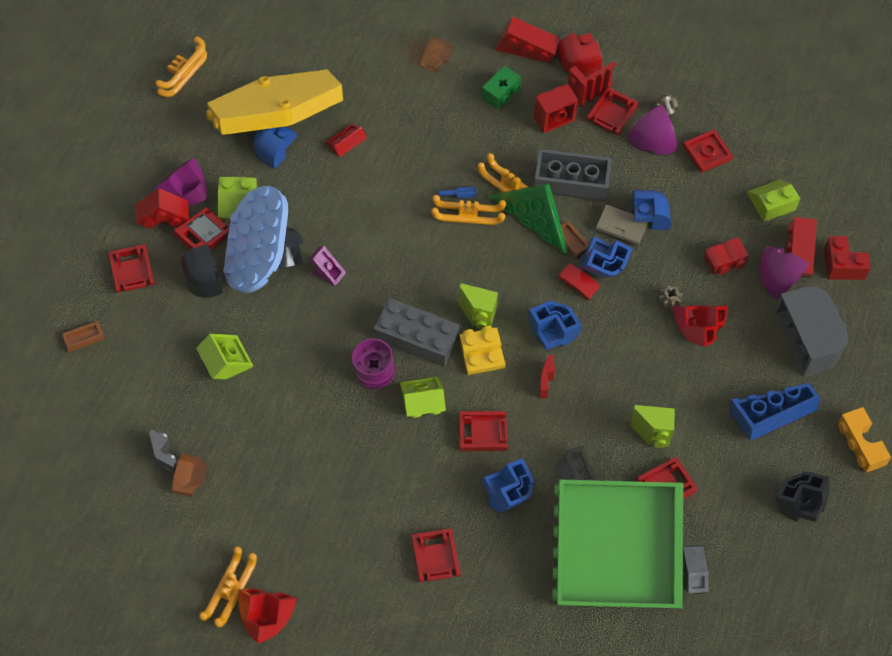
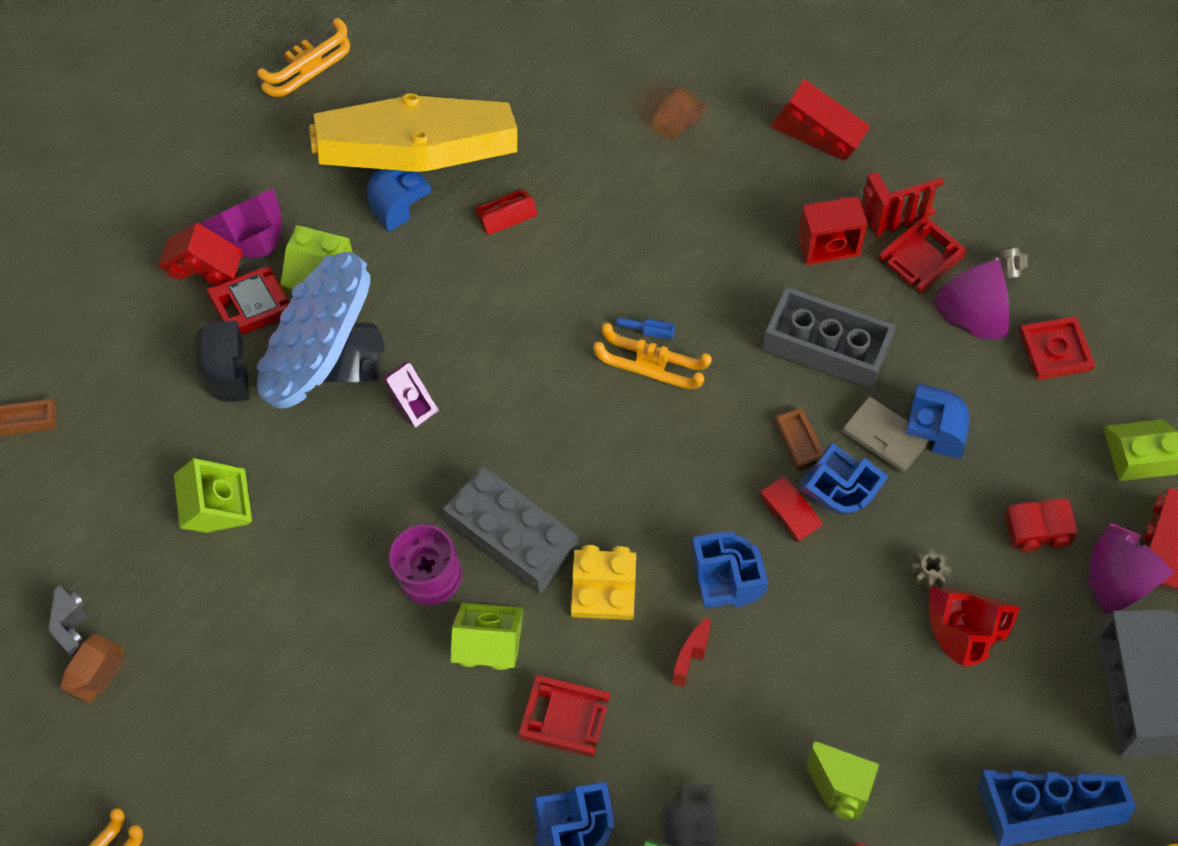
camera: 20 degrees right, 0 degrees up
(131, 273) = (130, 339): red container -> none
(478, 305) = (619, 511): lime slope -> none
(501, 87) = (760, 182): green brick -> none
(508, 180) = (728, 330): light orange piece -> none
(536, 211) = (754, 383): green tile -> none
(579, 52) = (895, 155): red brick -> none

